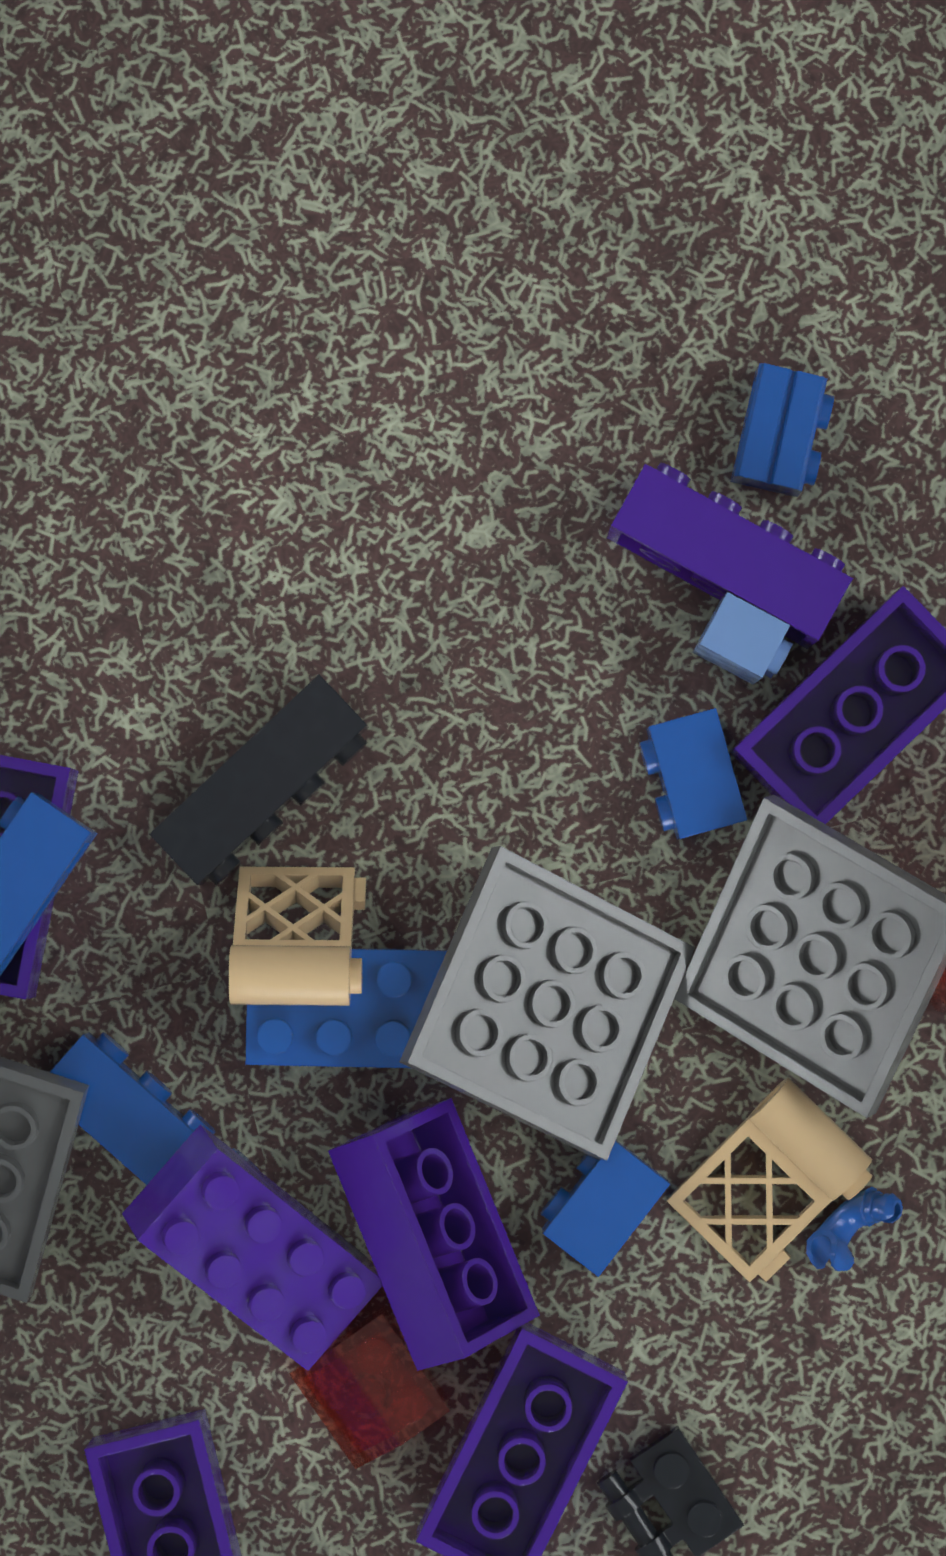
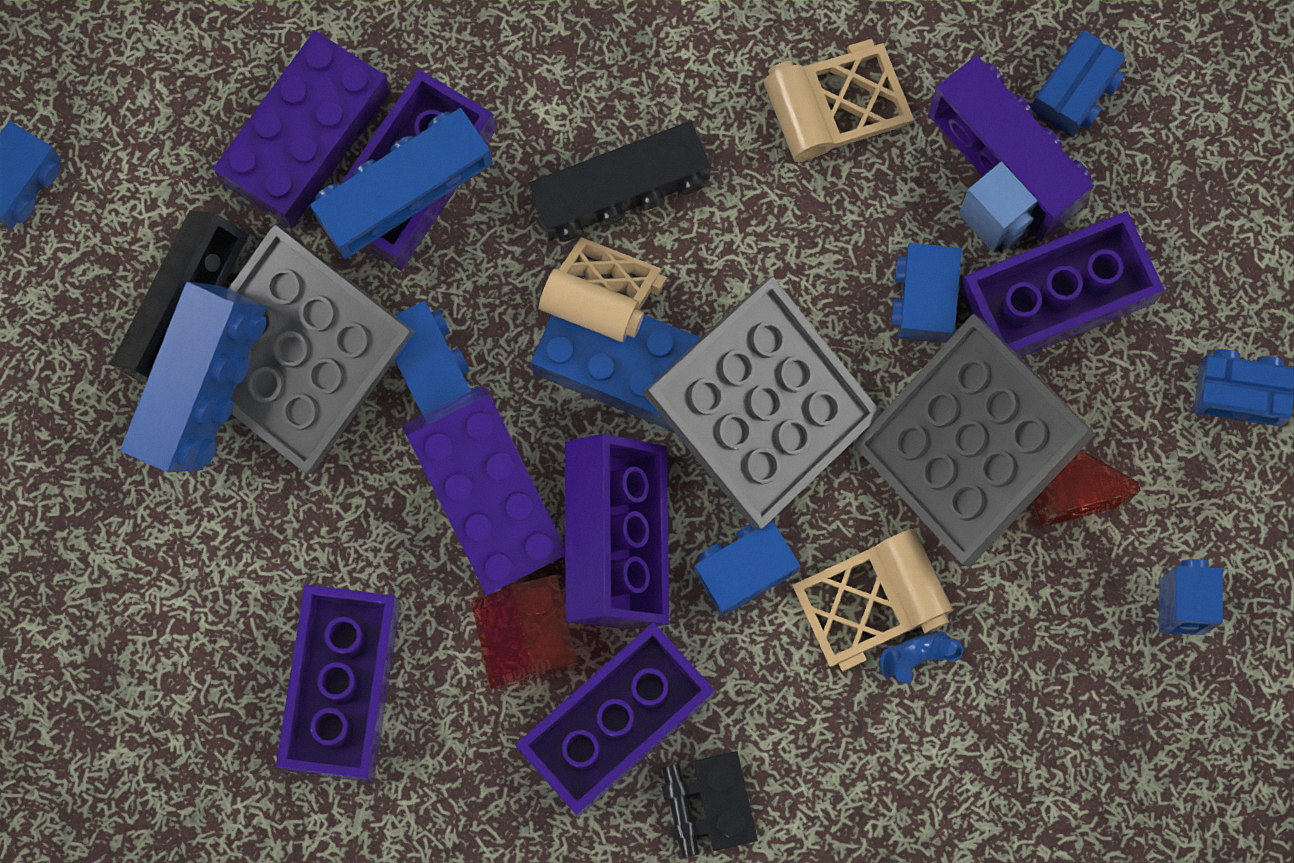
camera: 20 degrees right, 10 degrees down
(450, 593) = (804, 107): none -> tan piece

